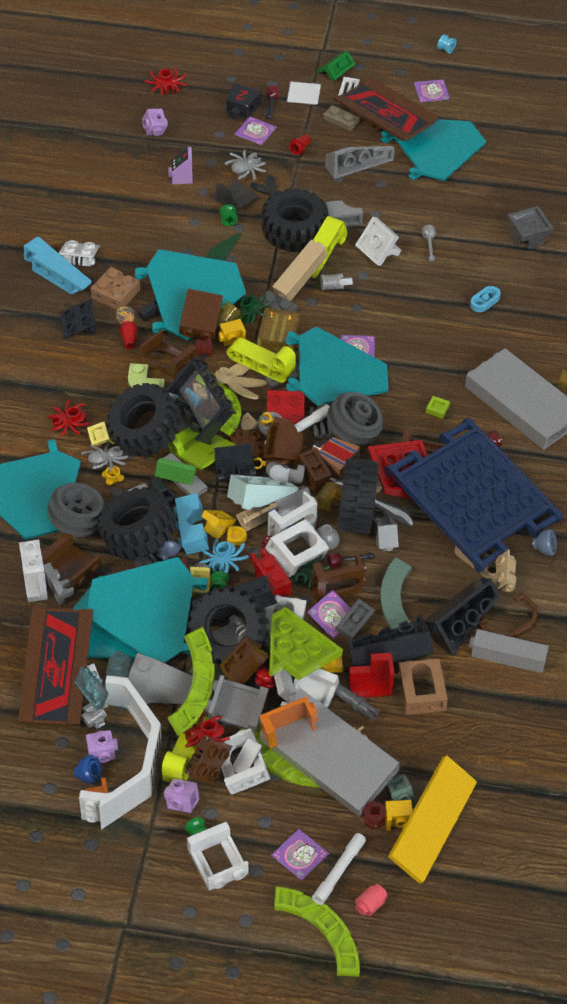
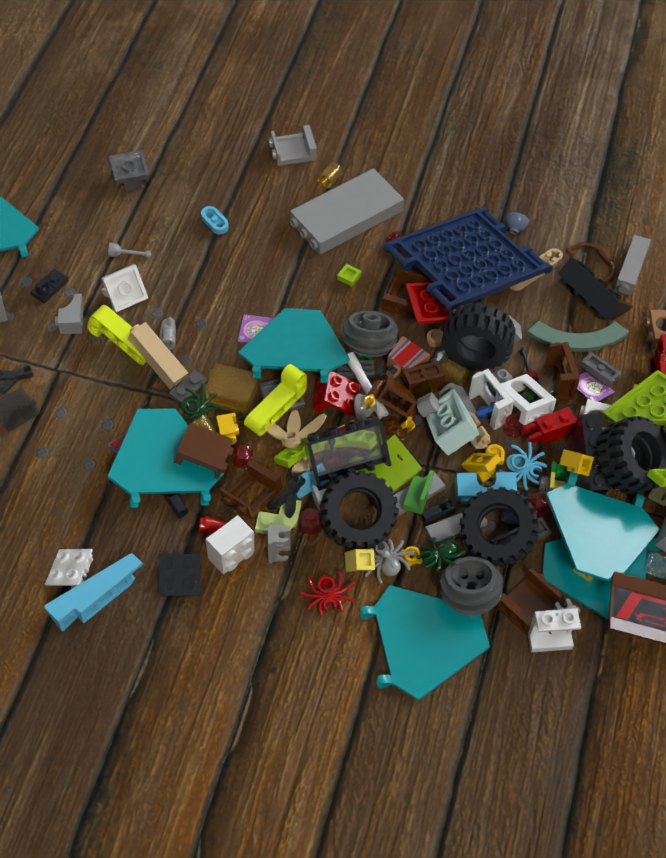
camera: 85 degrees left, 5 degrees up
(104, 342) = (230, 545): none -> white brick
(108, 372) = (278, 541): none -> light grey hinge
(108, 488) = (443, 553): none -> dark green animal
(115, 288) = (139, 534): medium nougat piece -> none
(125, 314) = (177, 530): clear tile -> none
(158, 377) = (288, 496): none -> pearl dark grey piece
(216, 579) = (576, 462): none -> yellow brick
(222, 250) = (93, 432): dark green sticker -> none
(228, 215) = (48, 416): green wheel -> none
(234, 461) = (418, 441): black hinge -> none
(288, 205) = (72, 335): black tyre -> none
(376, 197) = (49, 286): none -> black hinge
(403, 642) = (633, 338): black wedge -> none
(504, 571) = (553, 252): tan hinge -> none

